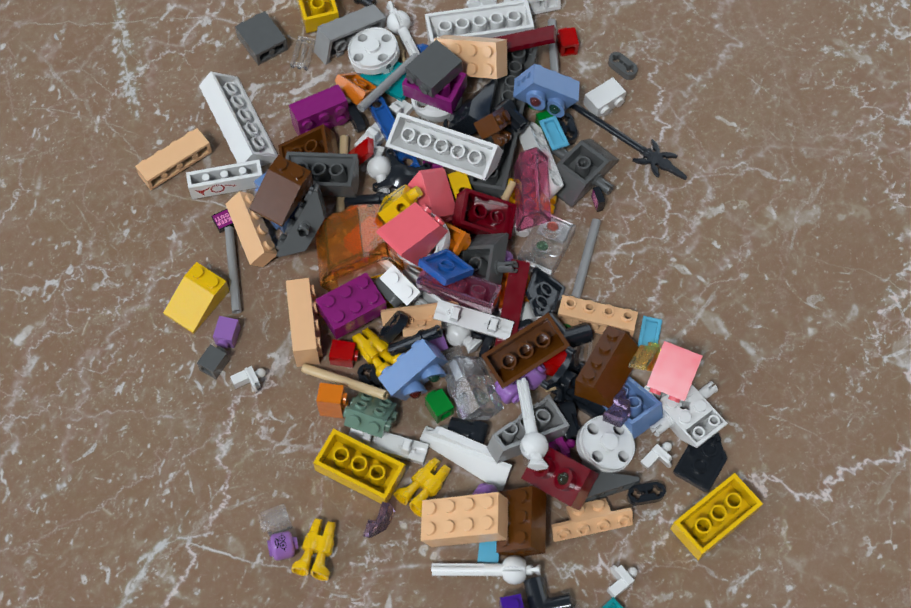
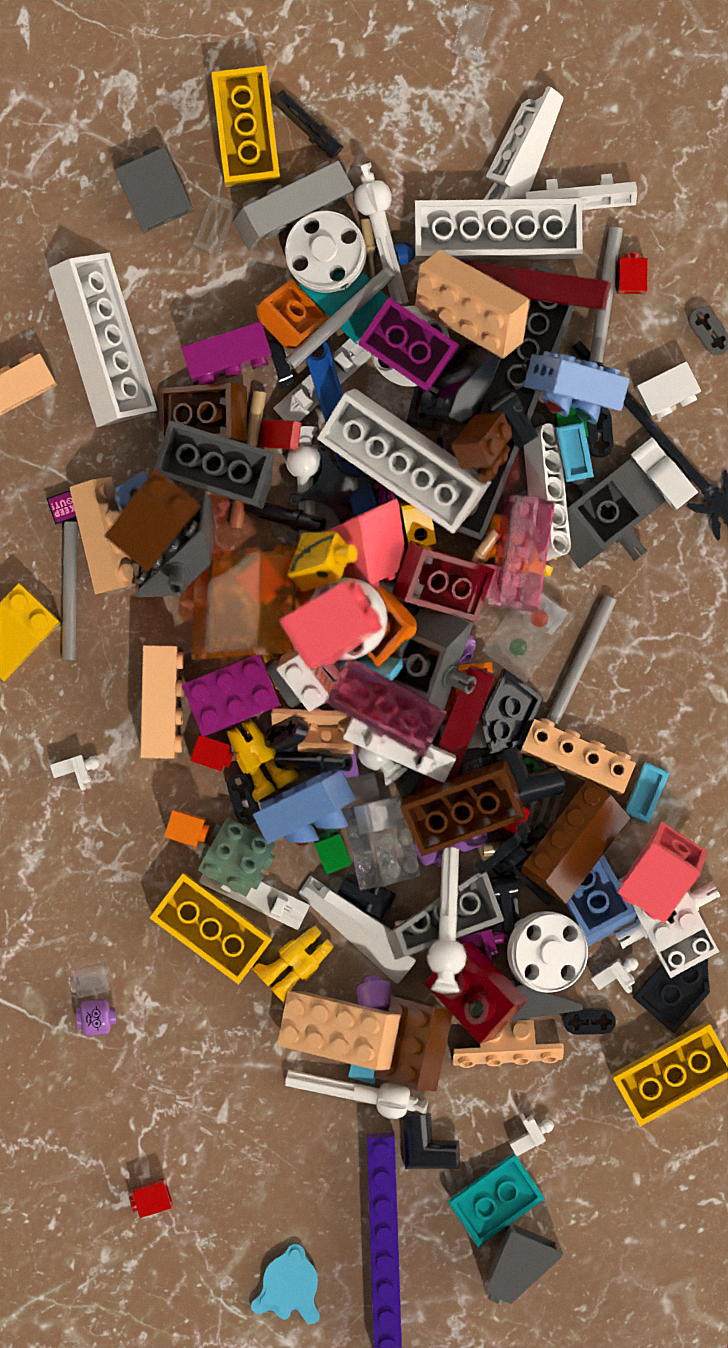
camera: 15 degrees right, 25 degrees up
(213, 361) = (29, 734): dark grey brick -> none
(223, 179) = (73, 445): white brick -> none
(226, 332) = (50, 694): medium lavender brick -> none
(318, 544) = (141, 1020): yellow piece -> none
(347, 382) = (207, 801): tan piece -> none
(382, 522) = (219, 1012): slope -> none
(433, 68) = (408, 334): dark grey brick -> none
(445, 267) = (371, 681): blue plate -> none
(598, 198) = (620, 564): black tile -> none
(615, 144) = (664, 474): none -> white piece
(619, 411) = (574, 913): clear purple slope -> none
(645, 357) = (630, 838): clear yellow slope -> none

